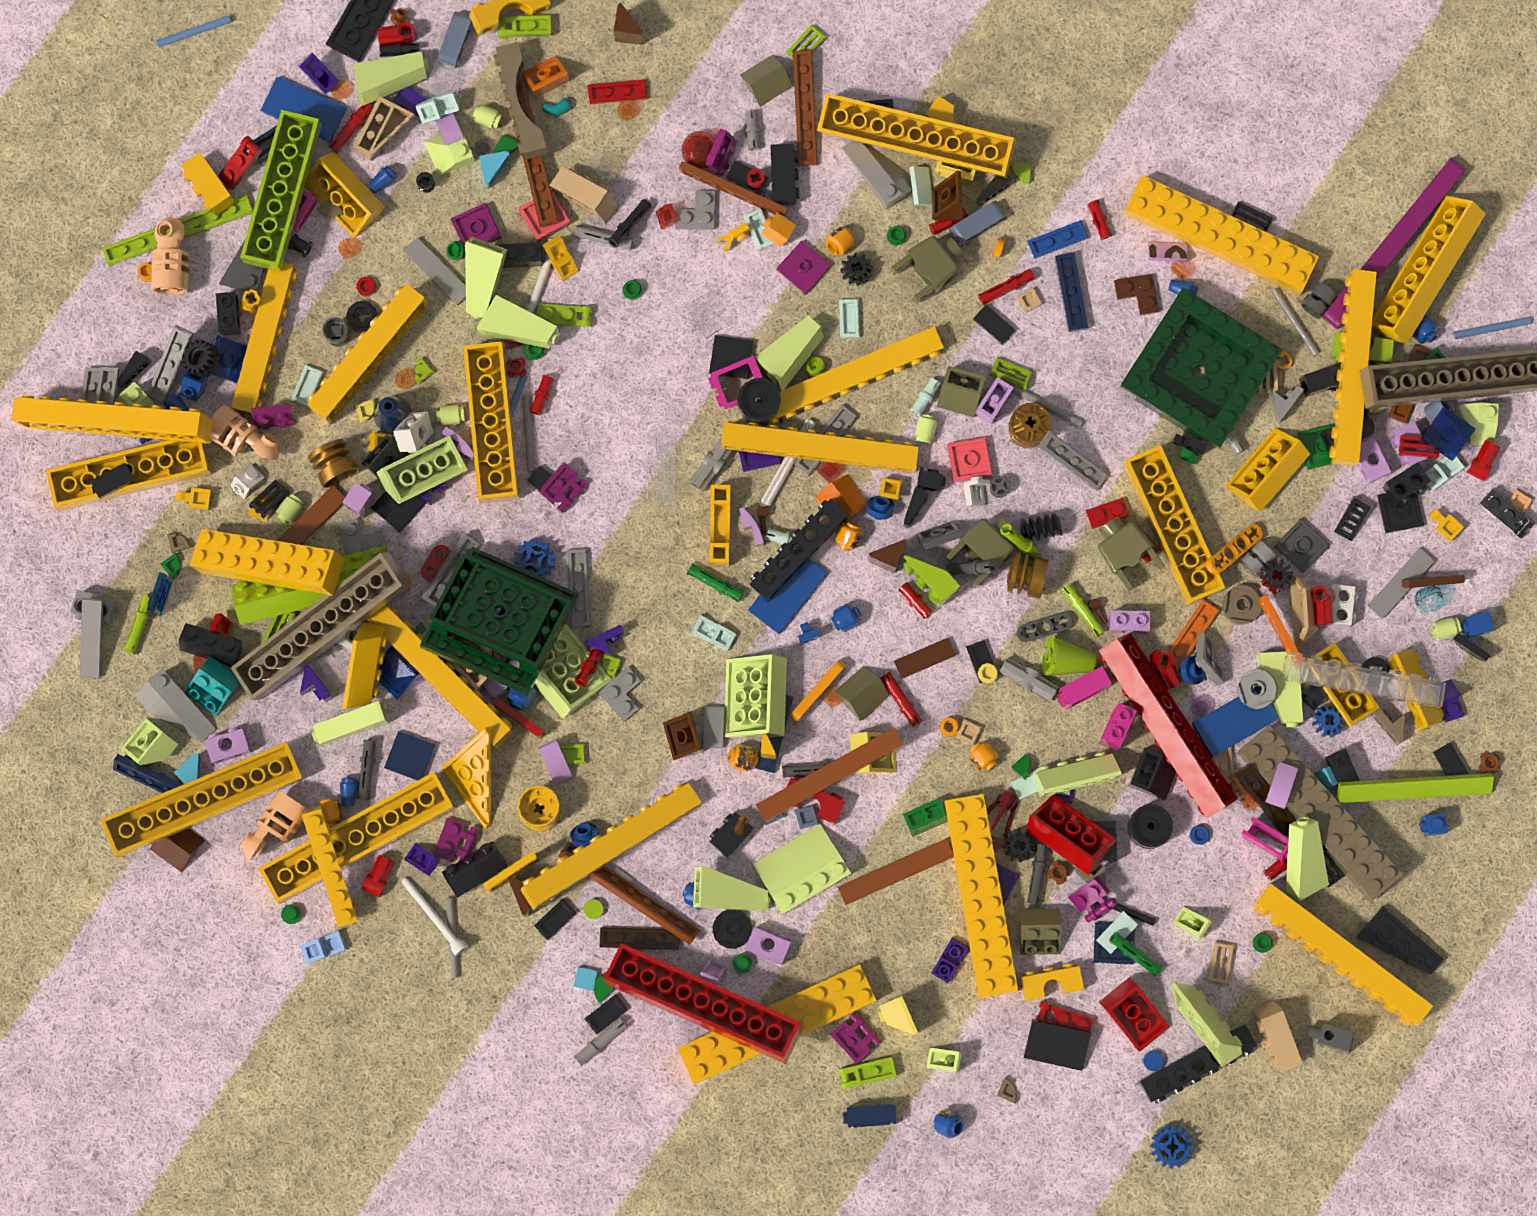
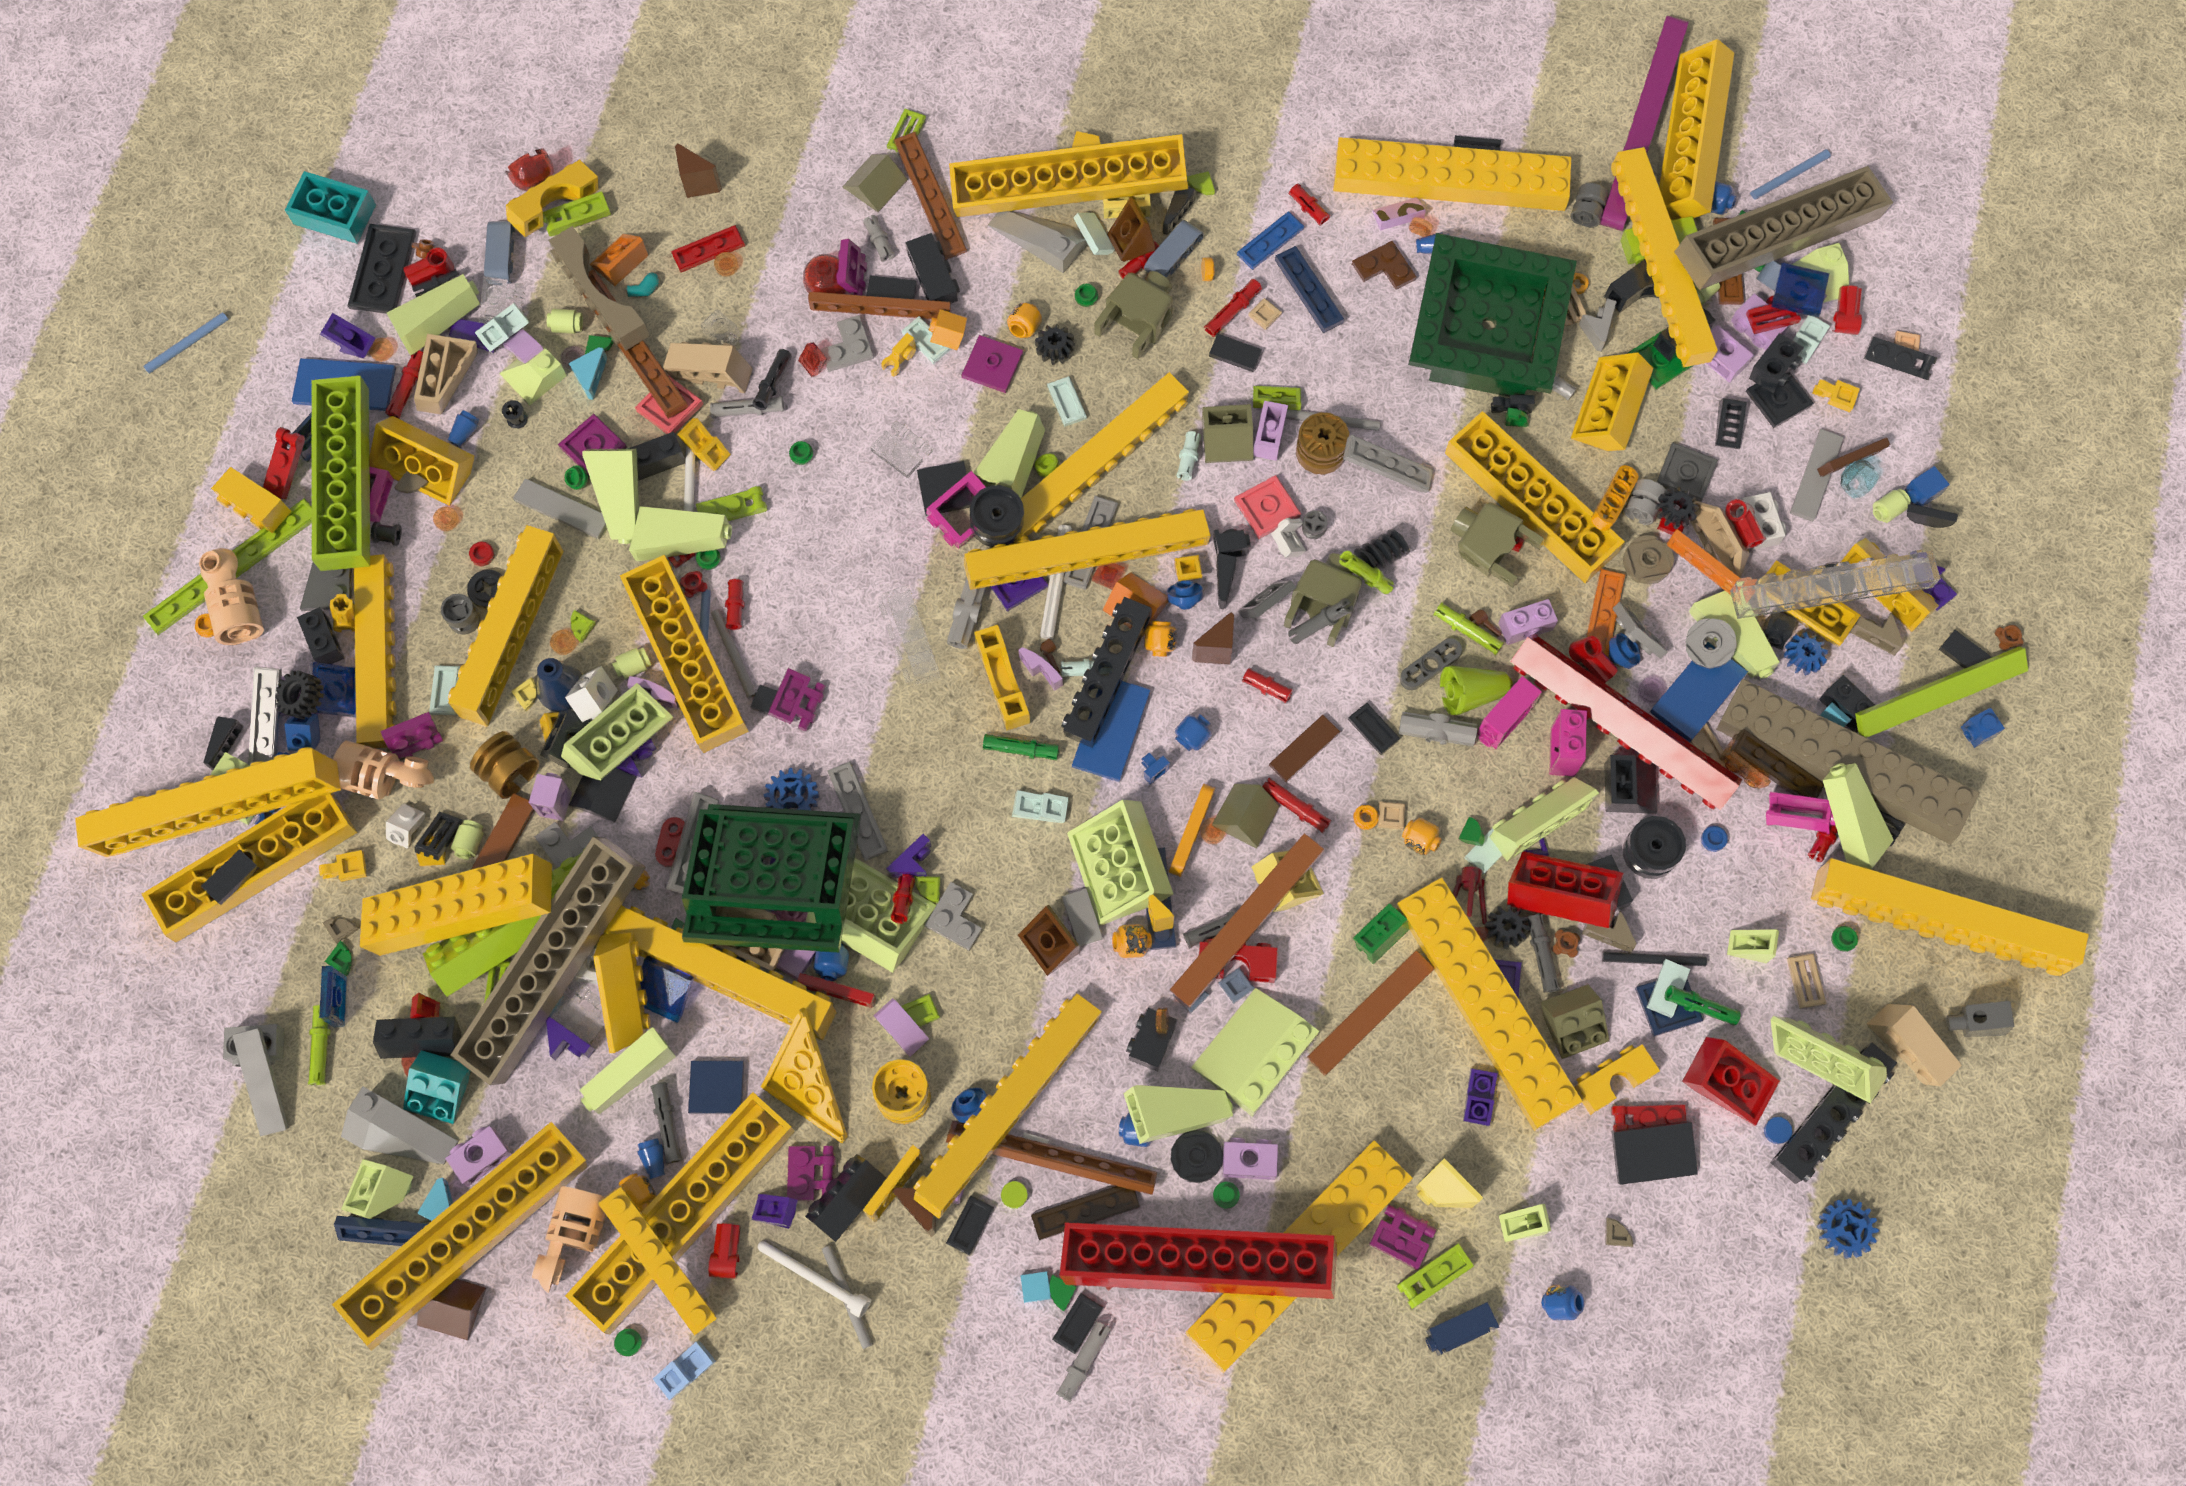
camera: 20 degrees left, 10 degrees down
(100, 384) = (184, 766): light grey slope -> none
(712, 971) = (1194, 1216): lavender tile -> none
(757, 184) = (906, 289): red bush -> none
(925, 429) = (1202, 490): yellowish green brick -> none
(940, 582) = (1267, 646): lime slope -> none
(987, 673) = (1387, 738): light yellow tile -> none
(1027, 575) = (1394, 608): pearl gold wheel -> none
(1090, 893) = (1617, 952): magenta plate -> none
(1104, 513) = (1444, 515): red plate -> none
(1281, 785) = (1792, 739): lavender slope -> none
(1295, 322) = (1572, 239): light grey bar -> none
(1396, 939) = (1999, 877): black wing -> none

